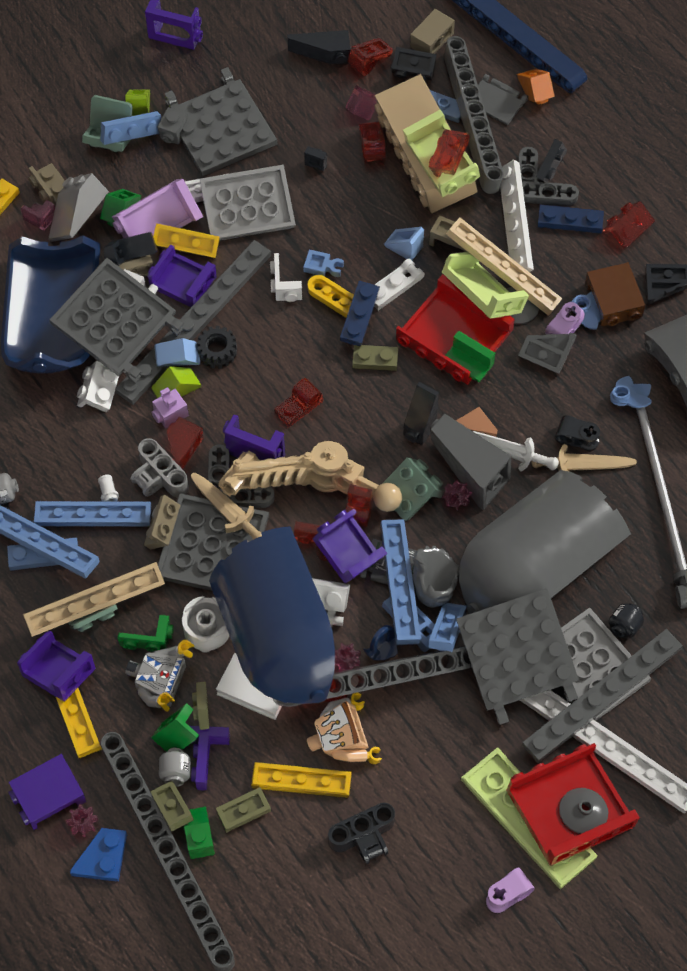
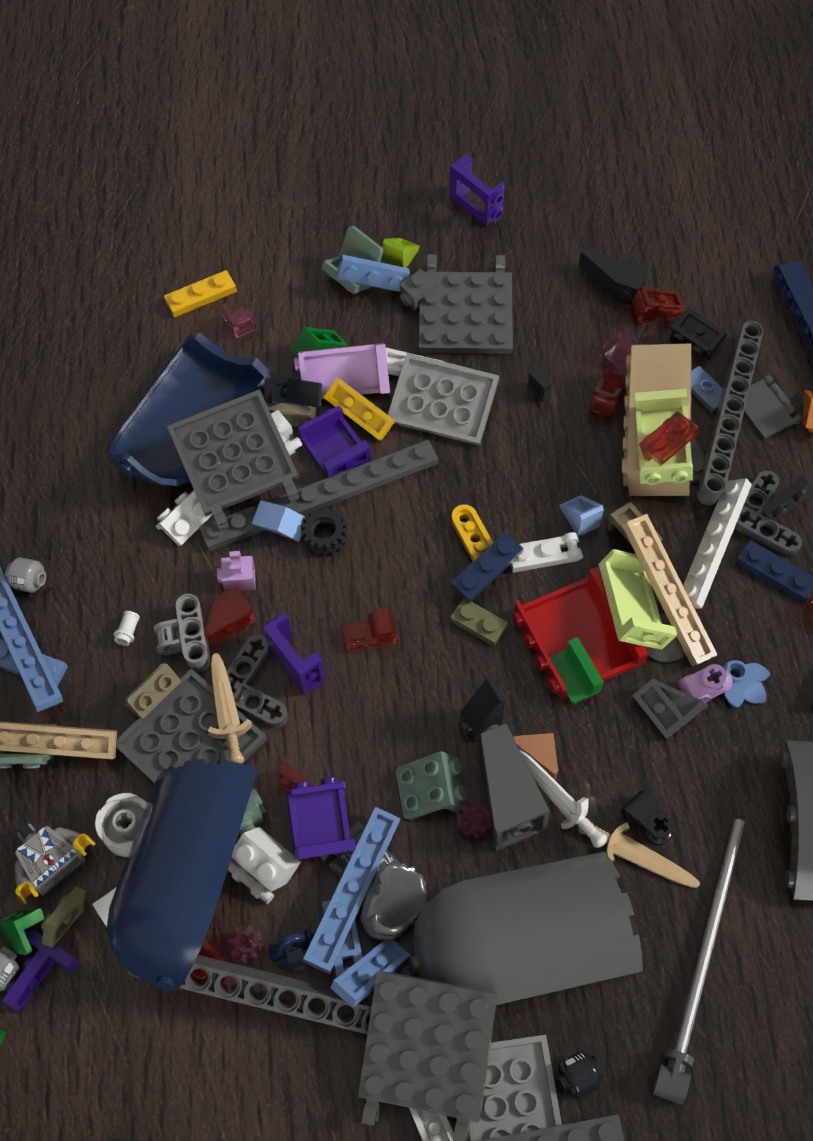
camera: 30 degrees right, 0 degrees up
(47, 181) = (268, 296): dark tan bracket -> none
(75, 205) = (275, 322): light grey slope -> none
(92, 513) = (95, 645): medium blue plate -> none
(150, 643) = (82, 810): green bracket -> none
(177, 378) = (264, 549): lime slope -> none
(243, 809) = (36, 1059): olive plate -> none
(285, 291) = (425, 505): white bracket -> none
(301, 780) = (119, 1059): yellow tile -> none
(320, 262) = (481, 494): medium blue plate -> none
(324, 468) = (348, 715): tan piece -> none
(342, 733) = (187, 1032): torso -> none
(362, 501) = (360, 779): clear red plate -> none
(432, 32) = (735, 309): dark tan panel -> none
(615, 294) = (780, 679): reddish brown panel -> none
(630, 394) = (738, 803): medium blue plate -> none

